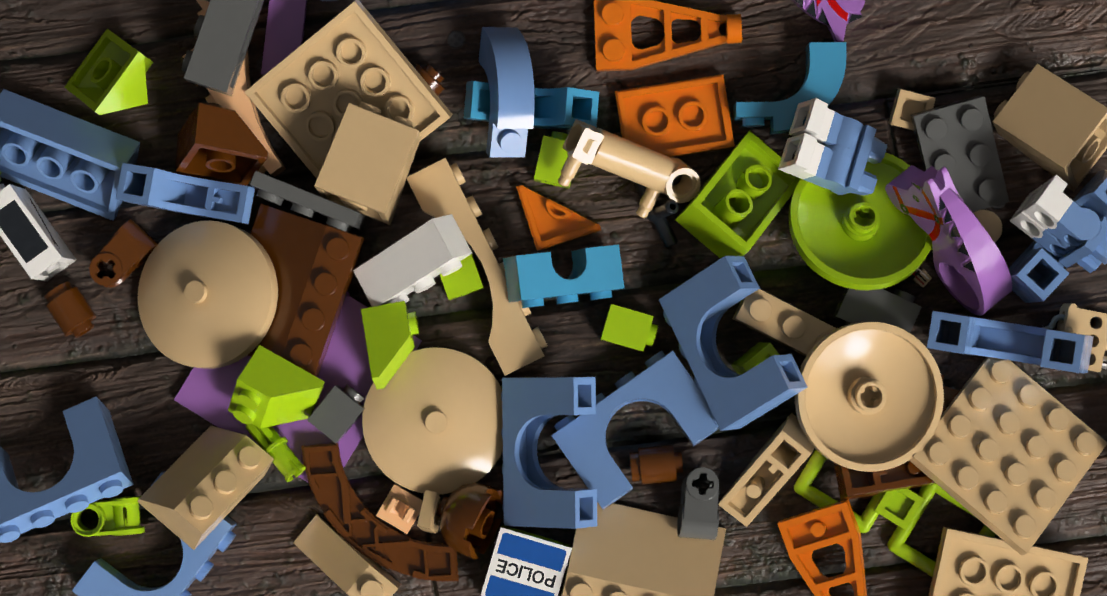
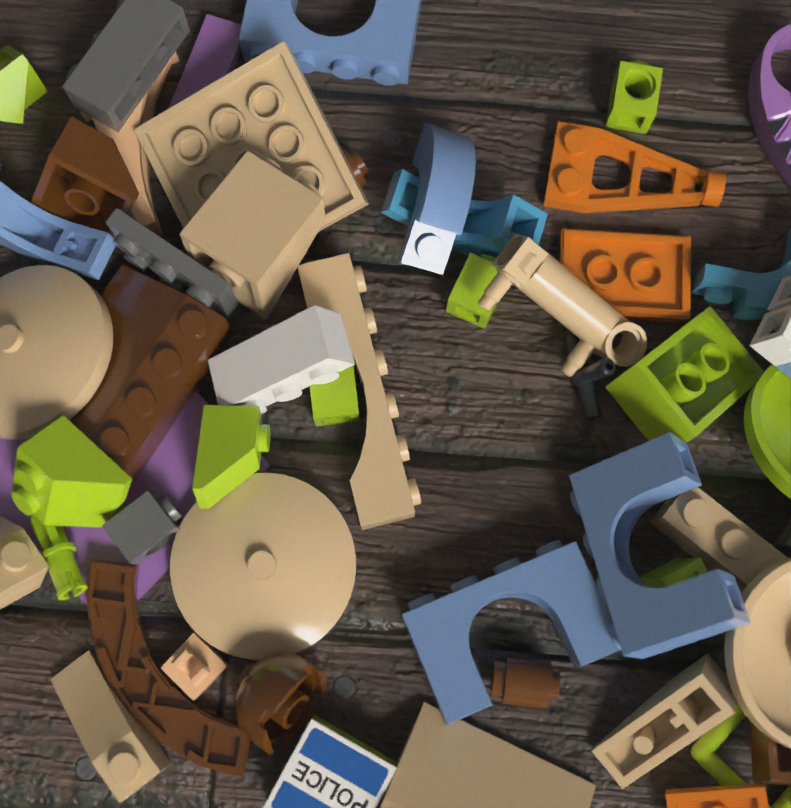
camera: 10 degrees right, 10 degrees down
(428, 520) = (223, 684): tan tile -> none
(527, 492) = (356, 685): medium blue arch -> none
(533, 278) = (424, 416): dark azure arch -> none
(552, 222) = (457, 361): orange tile -> none
(629, 328) = (524, 503): lime brick -> none
(699, 512) = (569, 753): dark grey piece -> none

